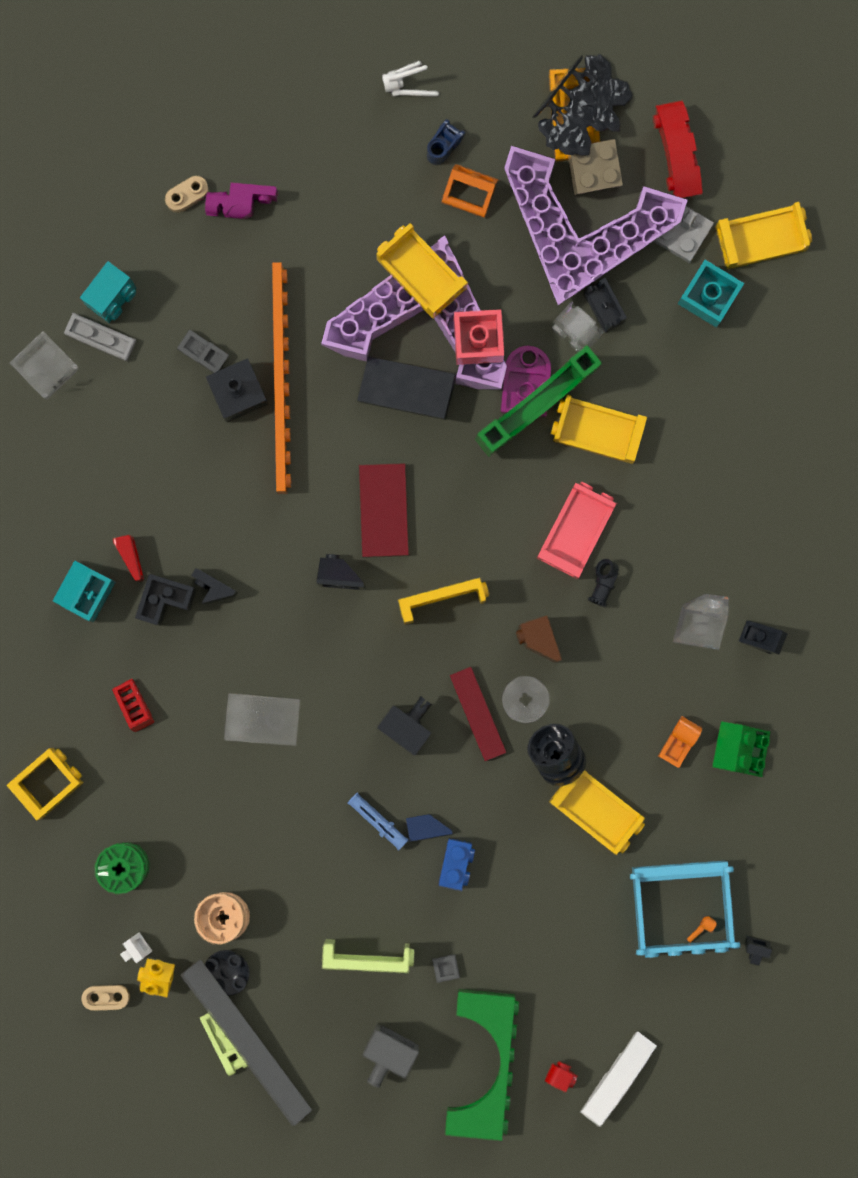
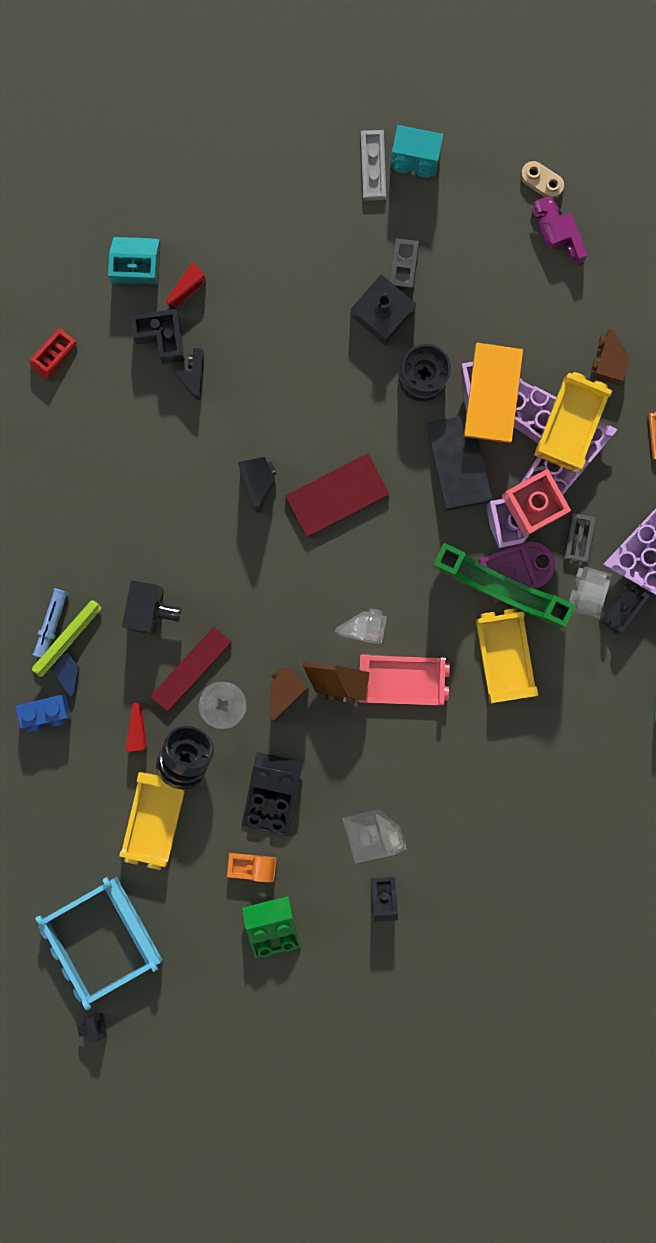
camera: 65 degrees right, 0 degrees up
(44, 365) = (322, 126): clear brick -> none
(262, 719) = (93, 474): clear slope -> none
(281, 368) = (384, 358): orange plate -> none
(312, 368) = (427, 360): none -> black wheel
(361, 328) = (493, 392): none -> light orange tile
(379, 210) = (612, 360): none -> reddish brown slope
(398, 812) = (66, 638): none -> lime axle
(448, 592) = (257, 556): yellow panel -> none
(514, 540) = (364, 627): none -> clear slope
(515, 790) = (136, 734): none -> red slope
(539, 326) = (576, 557): none -> dark grey tile
(553, 587) = (337, 681): none -> reddish brown slope
(605, 583) = (365, 728): black connector -> none
(623, 693) = (272, 793): none -> black slope
(707, 923) = (96, 970): orange hand -> none

